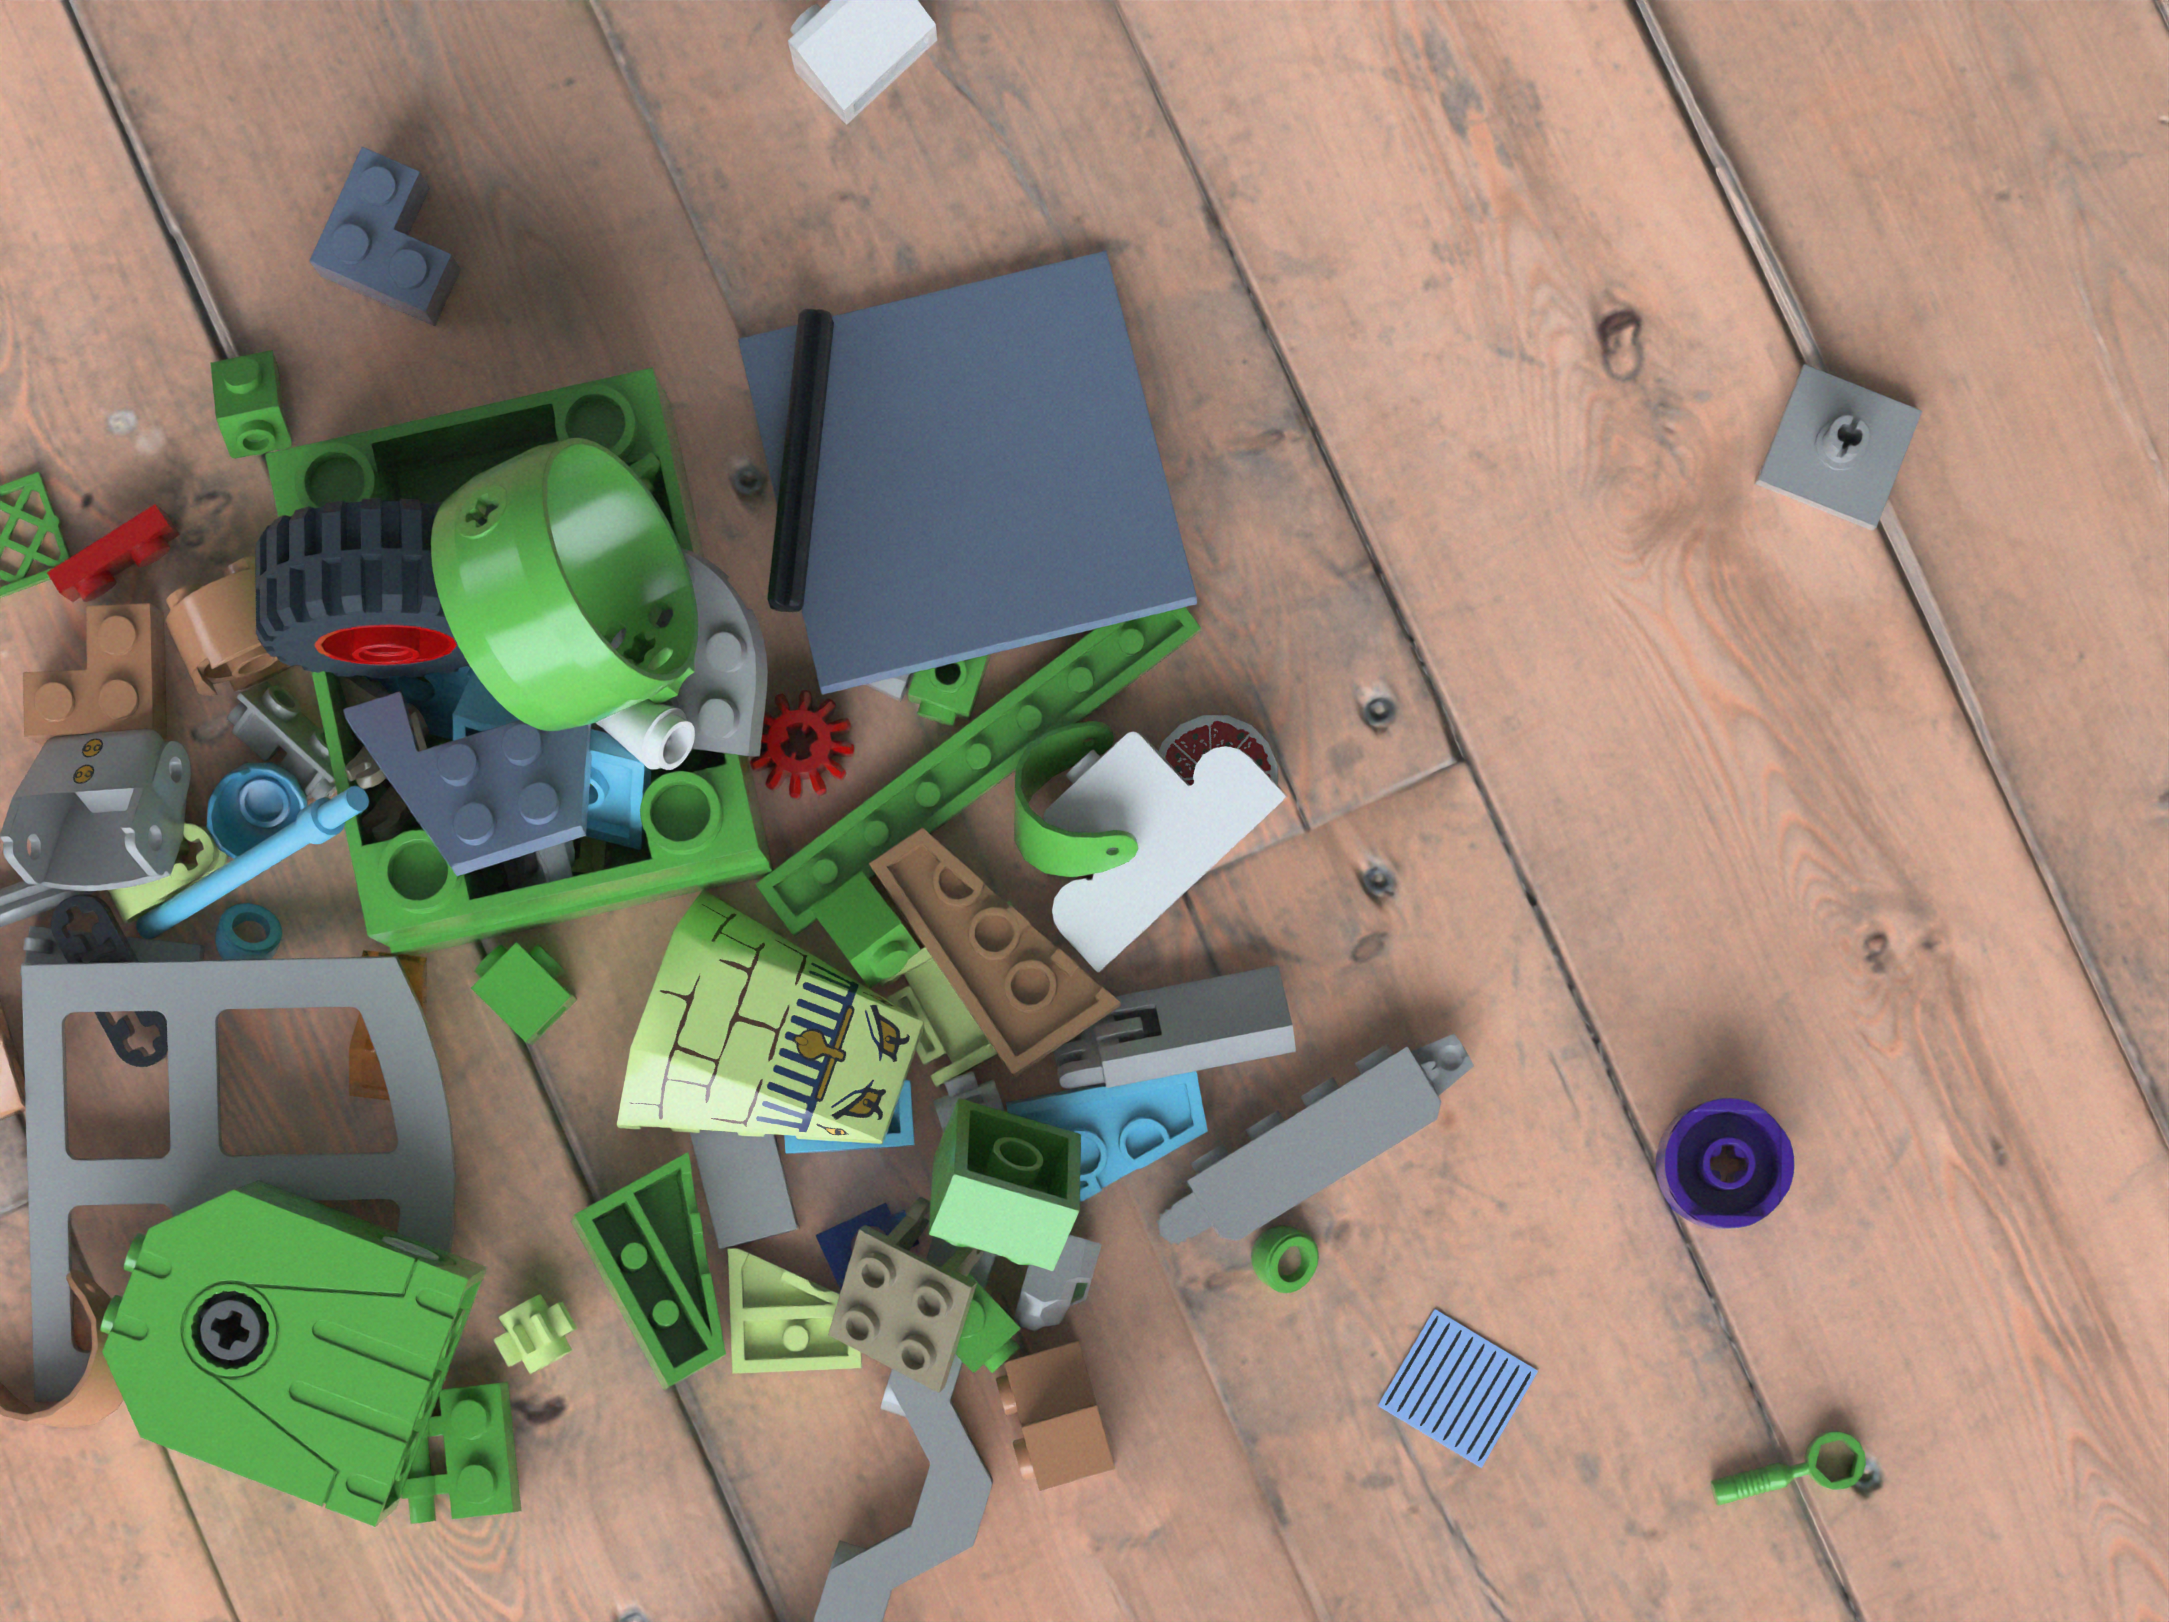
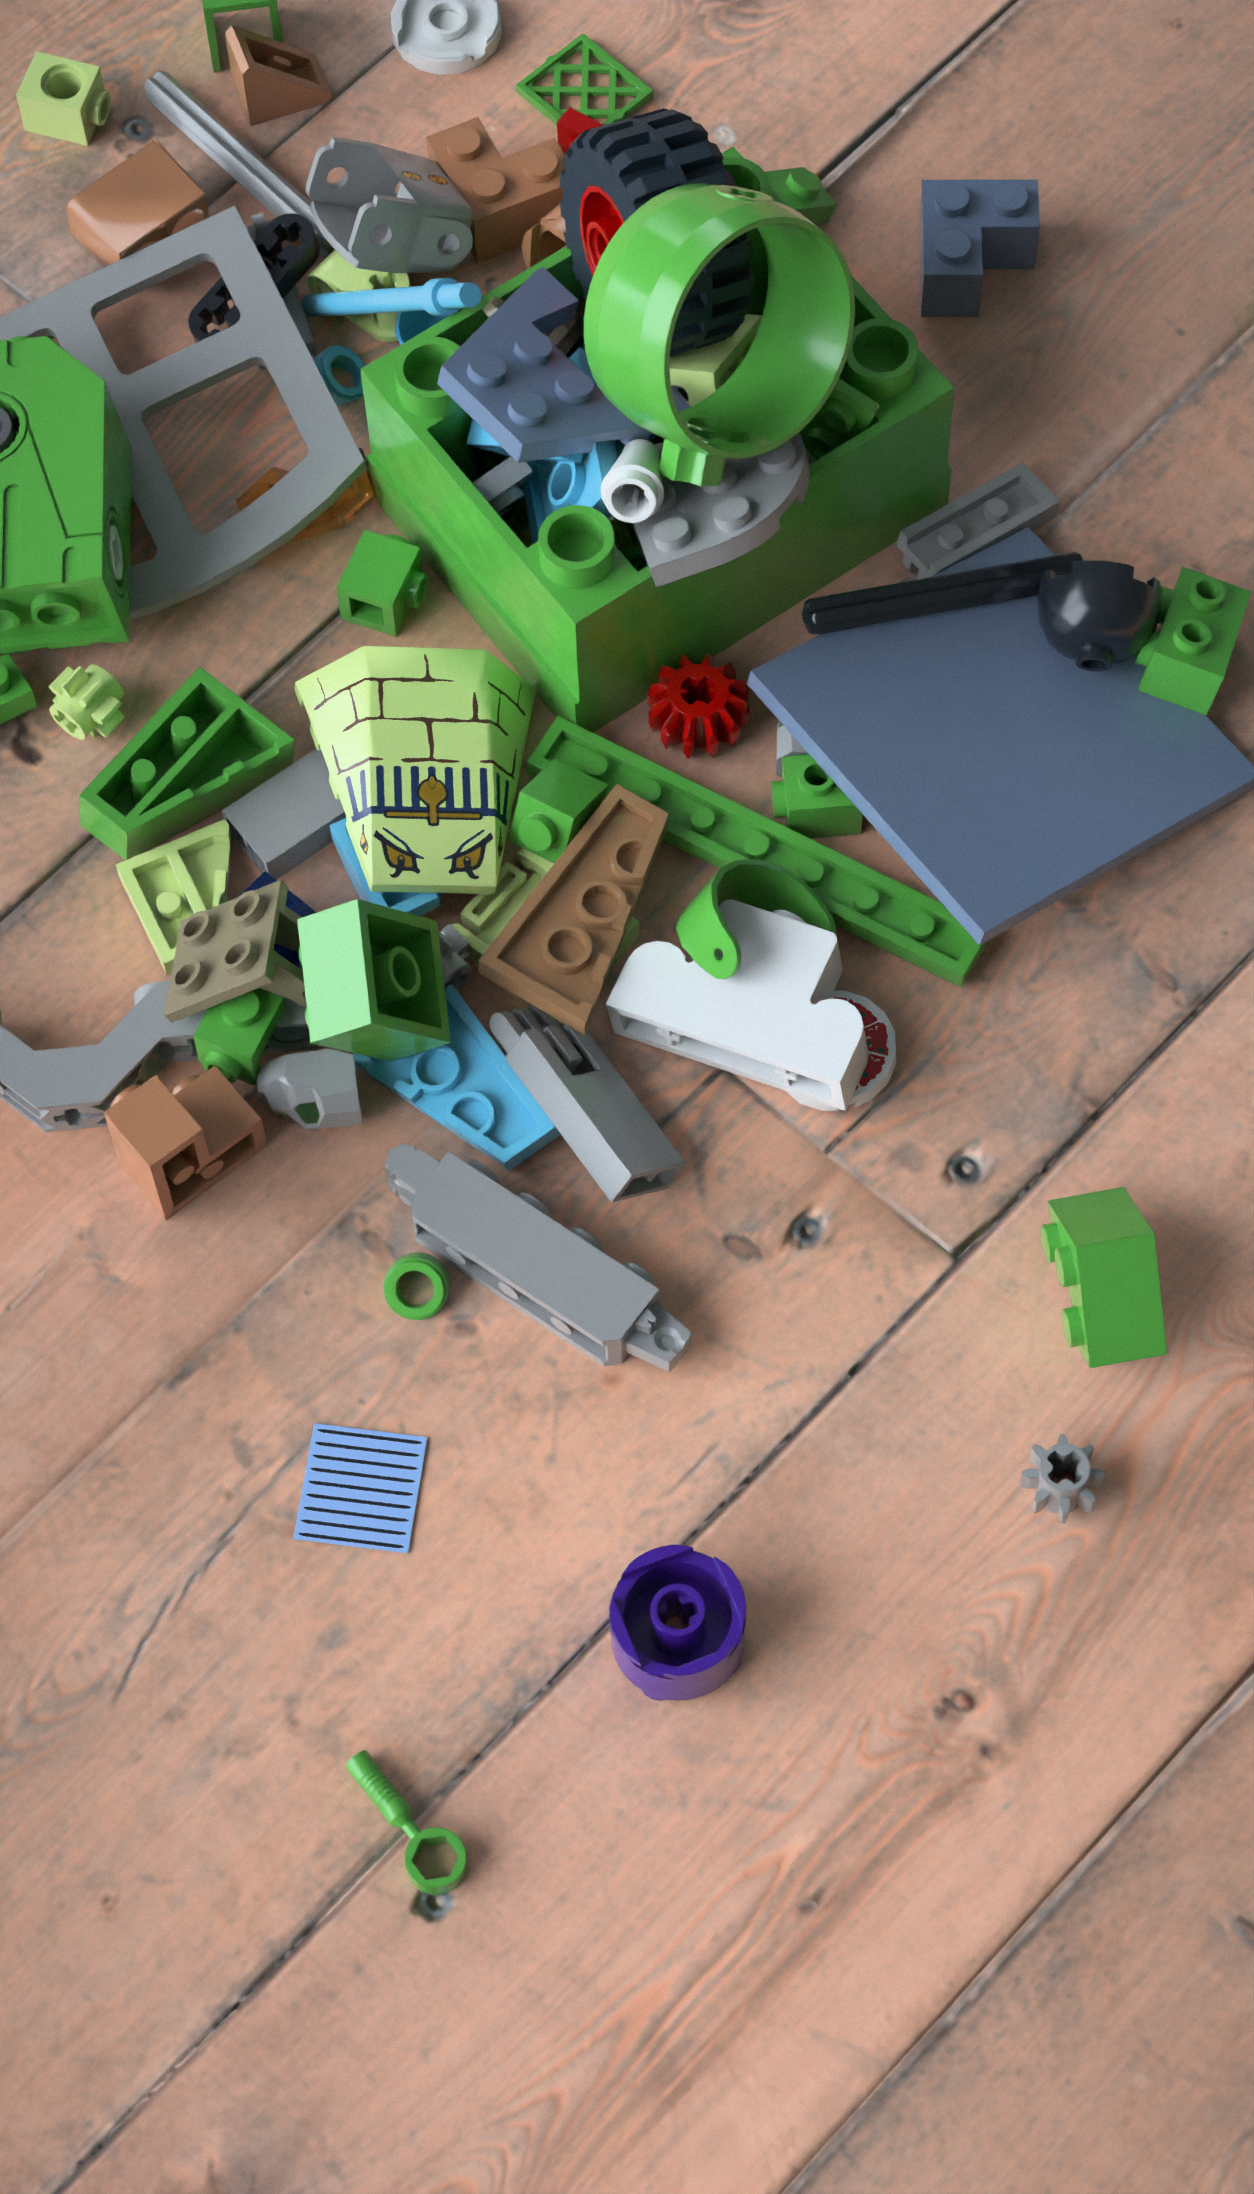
camera: 70 degrees right, 20 degrees down
(714, 386) = (977, 521): none -> light grey hinge
(899, 330) = (1098, 613): none -> black cylinder
(945, 247) = (1193, 640): none -> bright green brick
(1558, 639) = (1112, 1276): none -> bright green brick
(1720, 783) = (1059, 1462): none -> light grey gear

